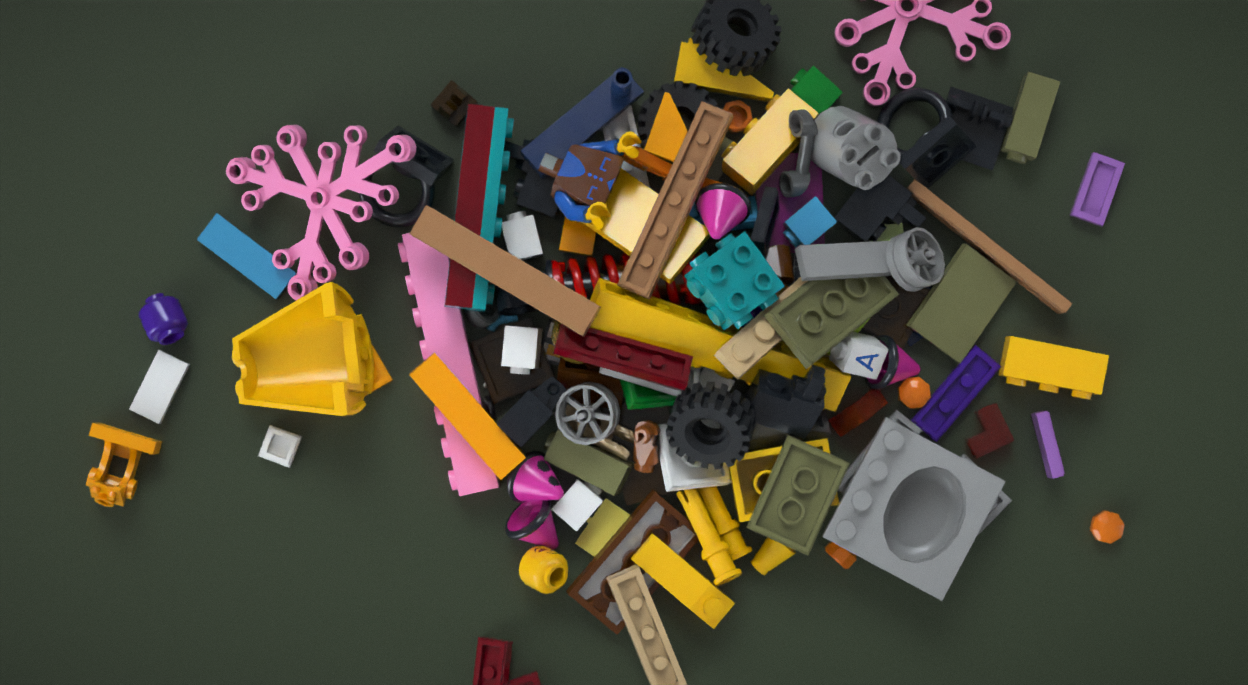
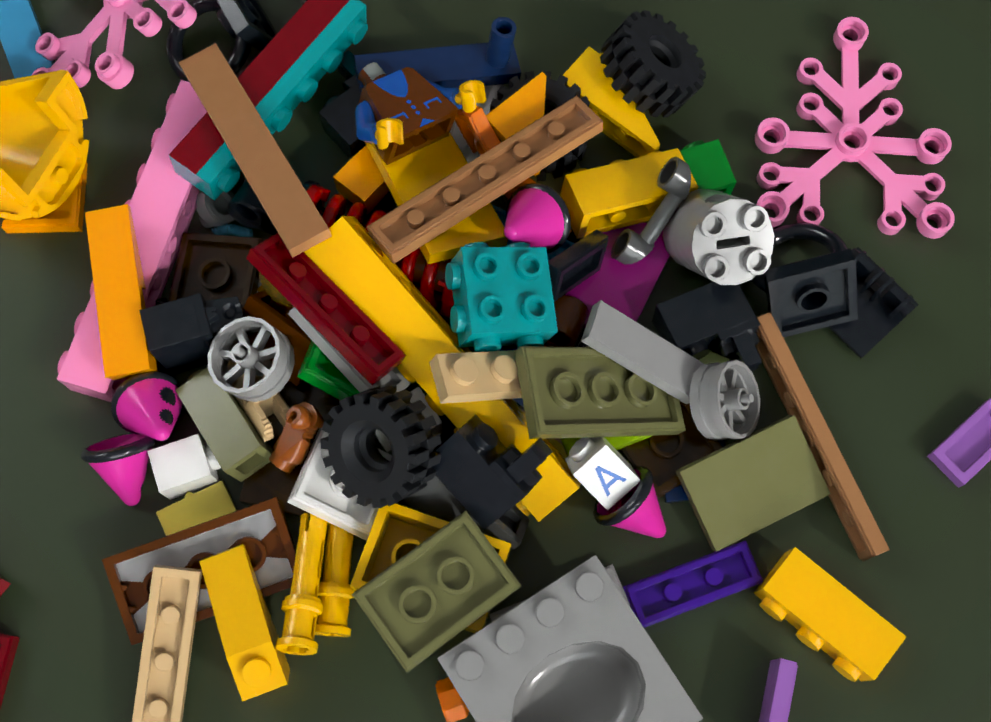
camera: 30 degrees right, 15 degrees down
(521, 348) = (224, 258): white brick -> none
(522, 236) = (308, 151): white brick -> none
(543, 569) = (96, 517): yellow head -> none
(741, 113) = (604, 151): orange tile -> none
(771, 555) = (368, 655): yellow cone -> none
(808, 223) = (627, 292): dark azure brick -> none
(858, 412) = (565, 539): clear red piece -> none
(914, 392) = (643, 556): orange tile -> none
(995, 432) = (717, 656): clear red piece -> none
(1029, 117) = (934, 320): olive brick -> none

